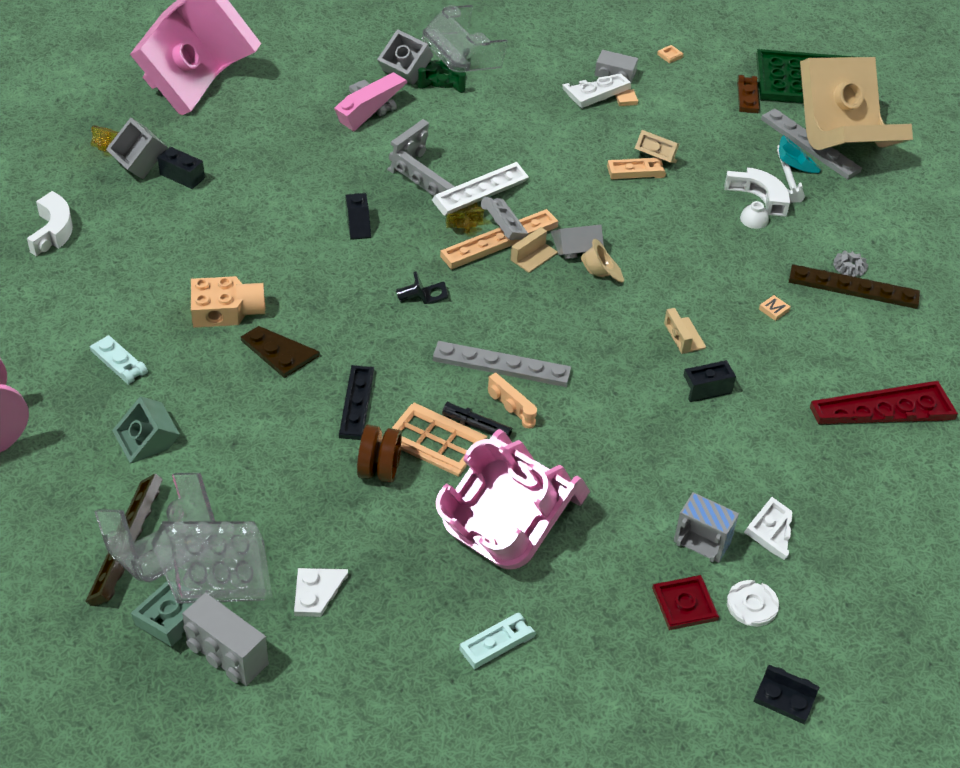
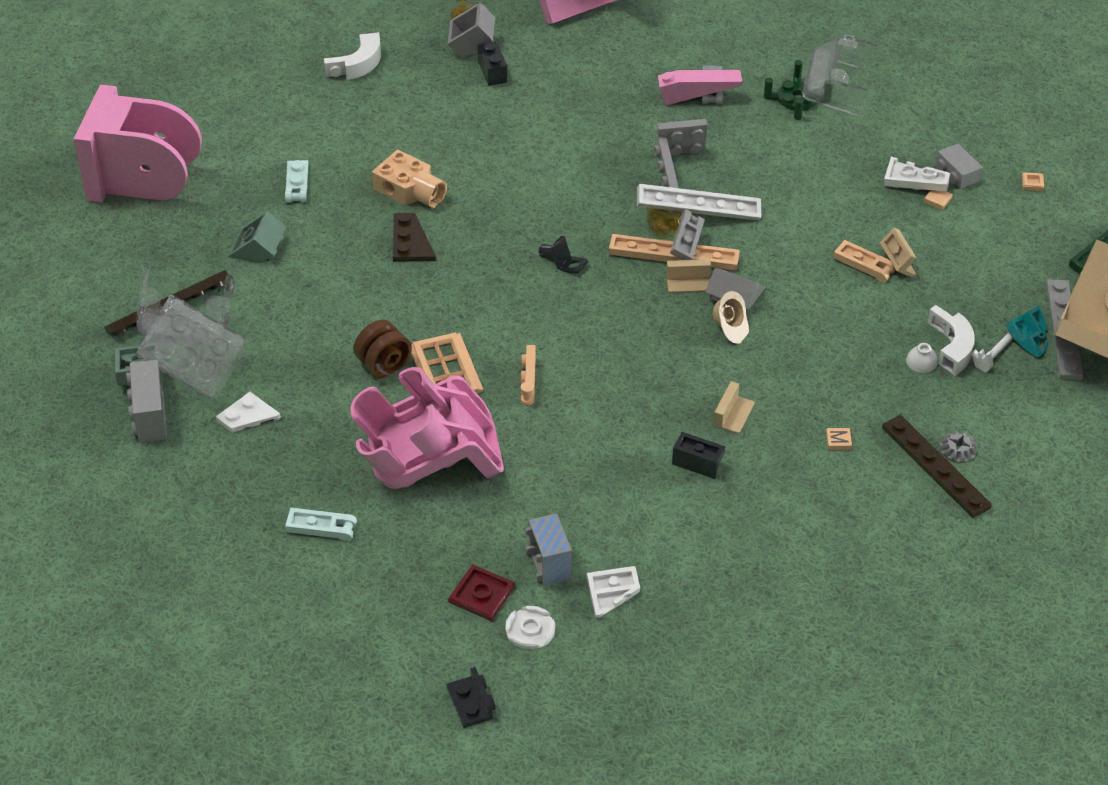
camera: 45 degrees right, 0 degrees up
(356, 402) = (424, 306): black tile -> none
(358, 216) = (581, 172): black slope -> none
(405, 56) = (769, 60): light grey brick -> none
(454, 411) = (484, 367): black pin -> none
(502, 363) = (559, 346): light grey plate -> none
(747, 94) = (1060, 255): reddish brown plate -> none
(896, 404) = (845, 576): dark red wing -> none

